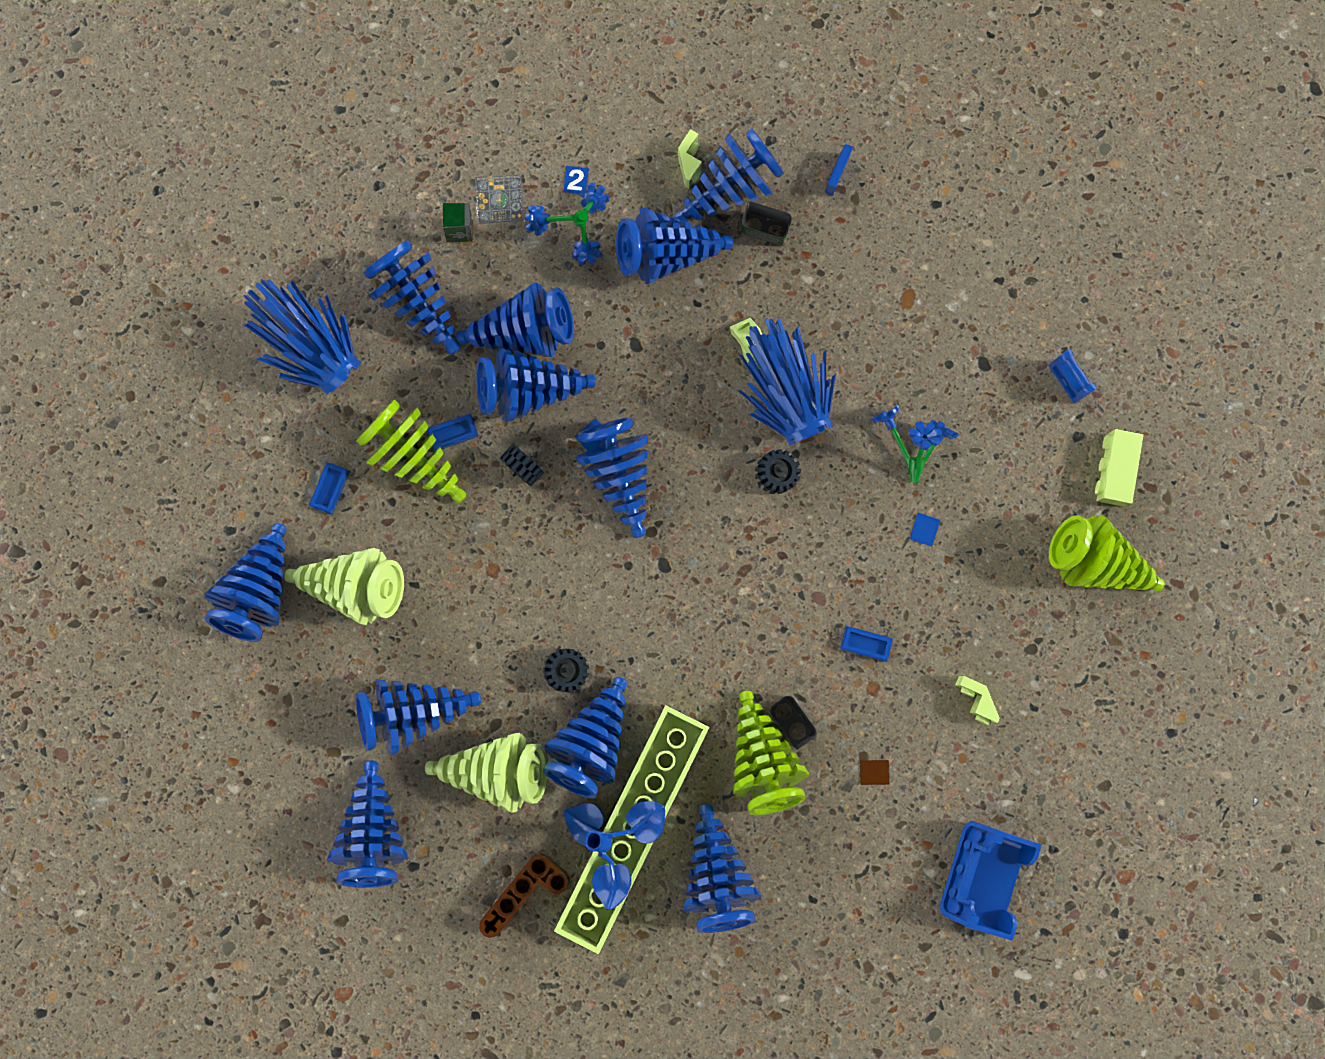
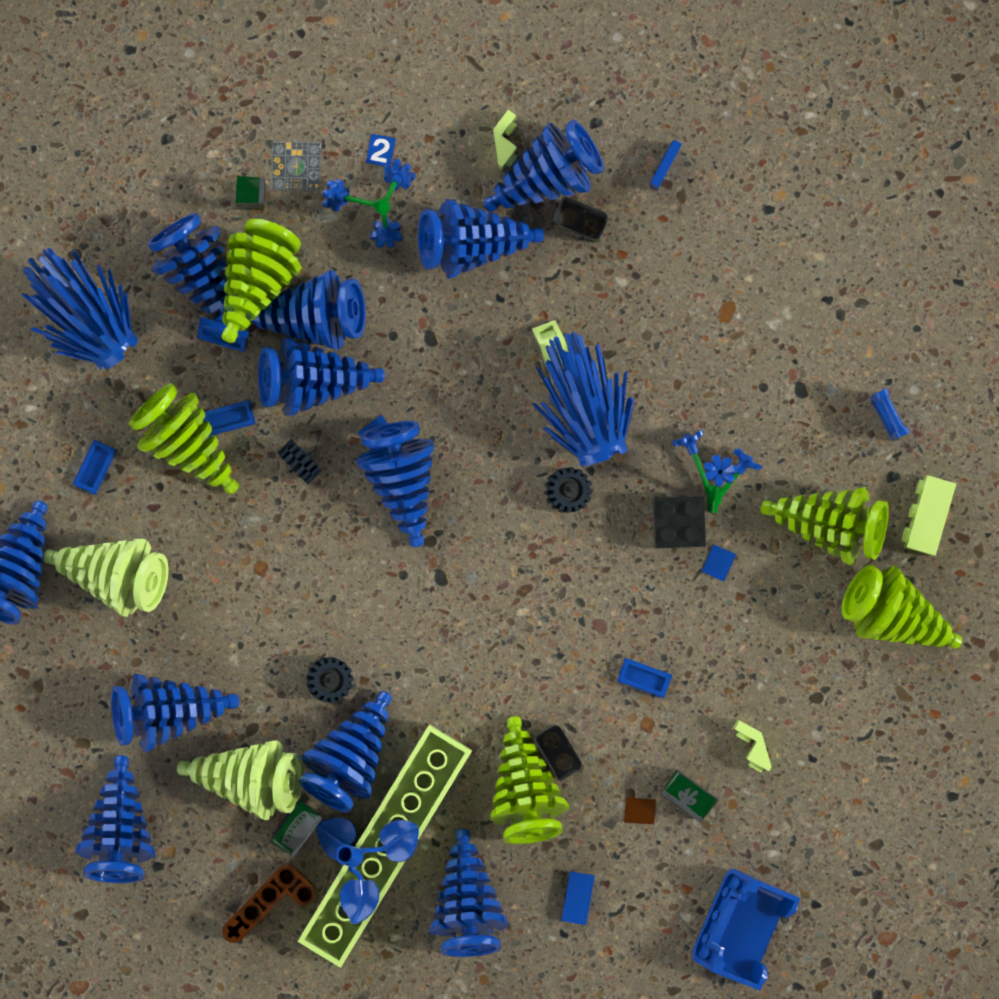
camera: 10 degrees right, 5 degrees up
(441, 354) = (212, 330): none -> blue tile
(469, 285) = (257, 269): none -> lime plant
(544, 817) = (296, 828): none -> piece
(823, 863) = (577, 897): none -> blue tile
(885, 493) = (679, 522): none -> pearl dark grey brick
(922, 753) = (689, 795): none -> dark green piece
(1025, 478) = (835, 521): none -> lime plant

